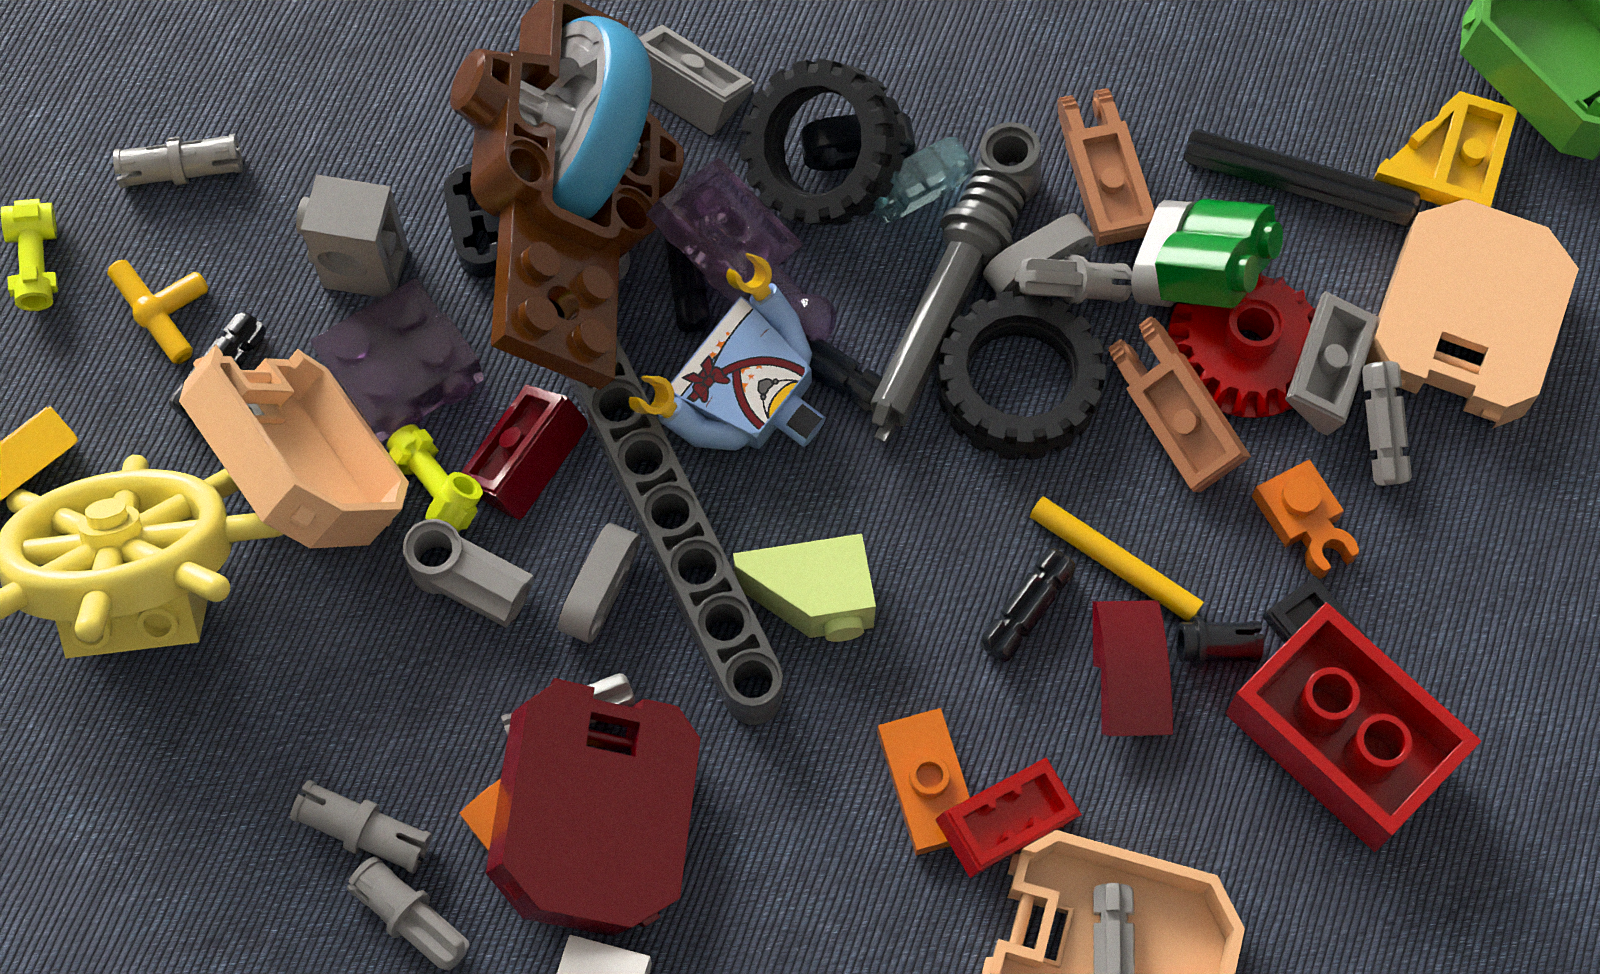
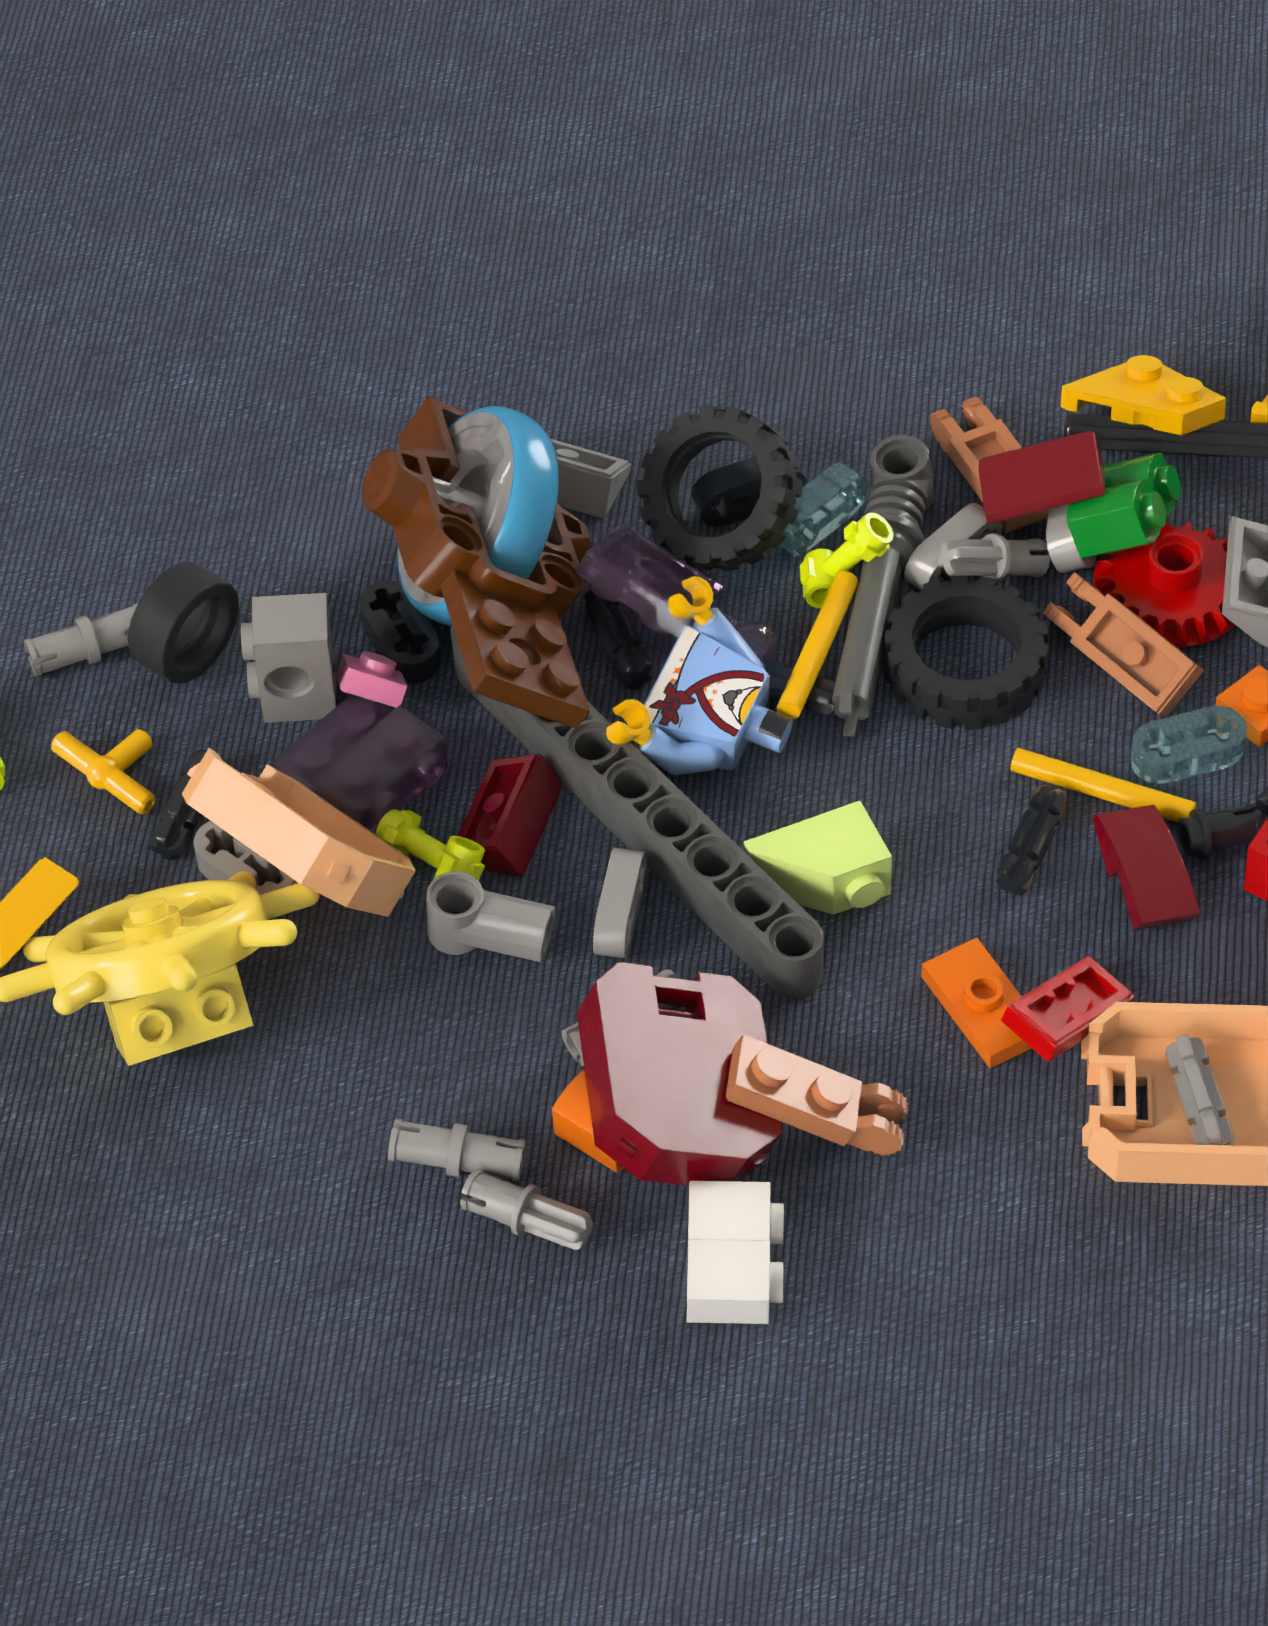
camera: 10 degrees left, 15 degrees down
(246, 152) = (183, 622): none -> black tyre
(428, 274) = (372, 678): none -> bright pink plate
(719, 862) = (815, 1097): none -> nougat hinge
(872, 339) = (817, 645): none -> yellow bar
(907, 249) = (864, 541): none -> neon yellow bar
(1144, 208) = (1041, 476): none -> dark red slope
(1216, 545) = (1188, 745): none -> clear light blue beam
(1279, 127) = (1148, 395): none -> yellow wing

